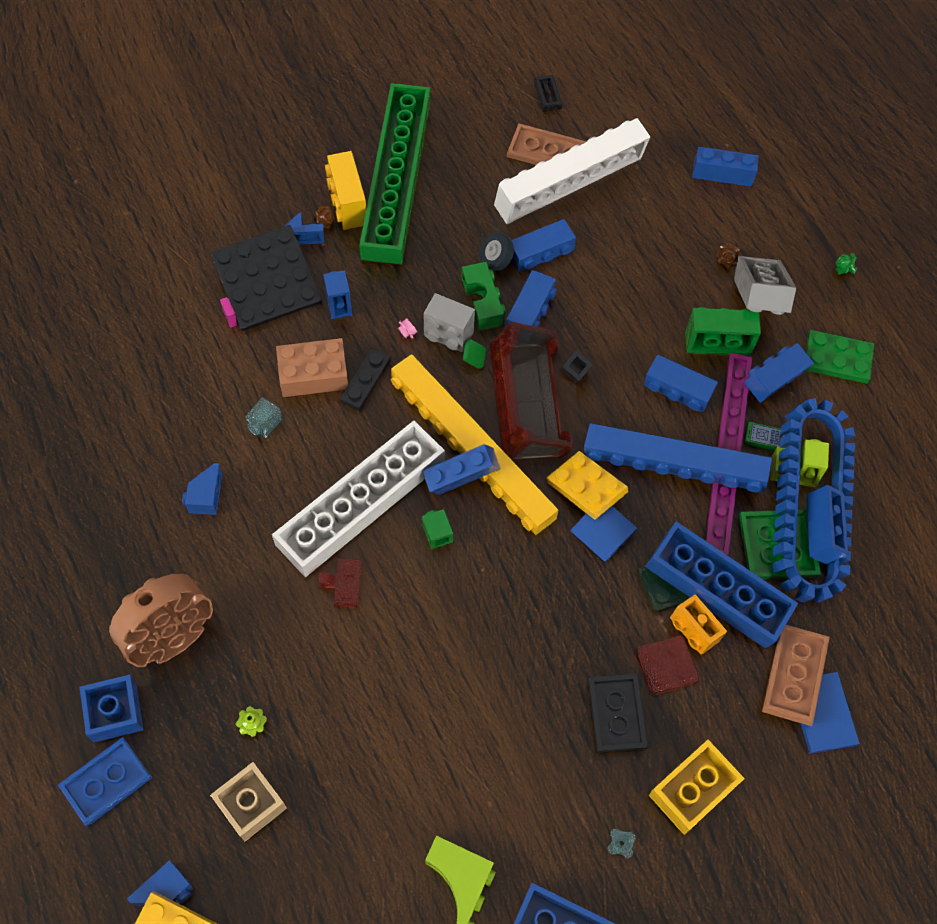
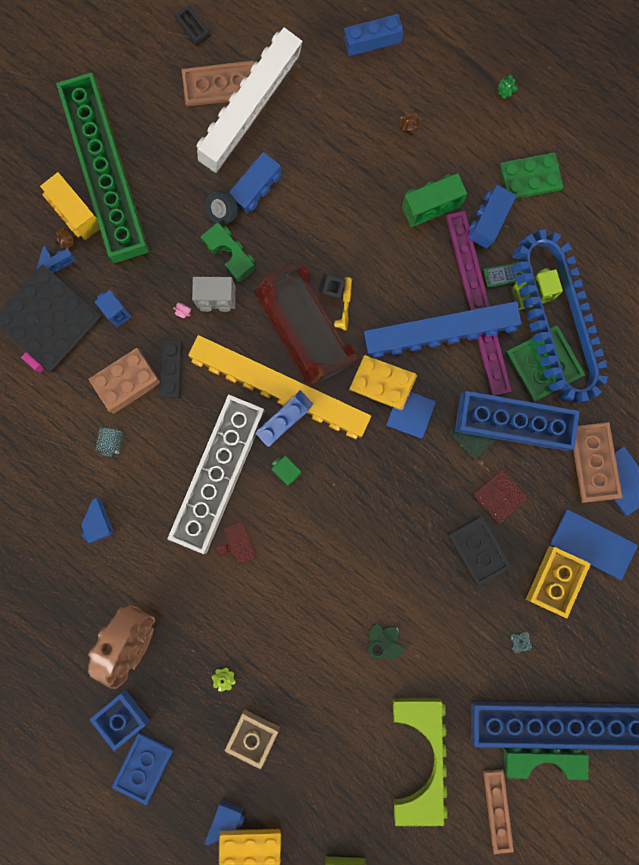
camera: 15 degrees left, 20 degrees up
(460, 765) = (386, 640): none -> dark green plate
(474, 354) = (246, 308): green tile -> none
(533, 300) = (271, 242): blue brick -> none
(572, 411) = (343, 323): none -> yellow piece
(680, 383) = (418, 261): blue brick -> none
(698, 624) = (511, 458): light orange brick -> none
(764, 285) = (452, 144): light grey brick -> none
(766, 773) = (593, 544): none -> blue tile
(826, 524) = (577, 335): blue brick -> none

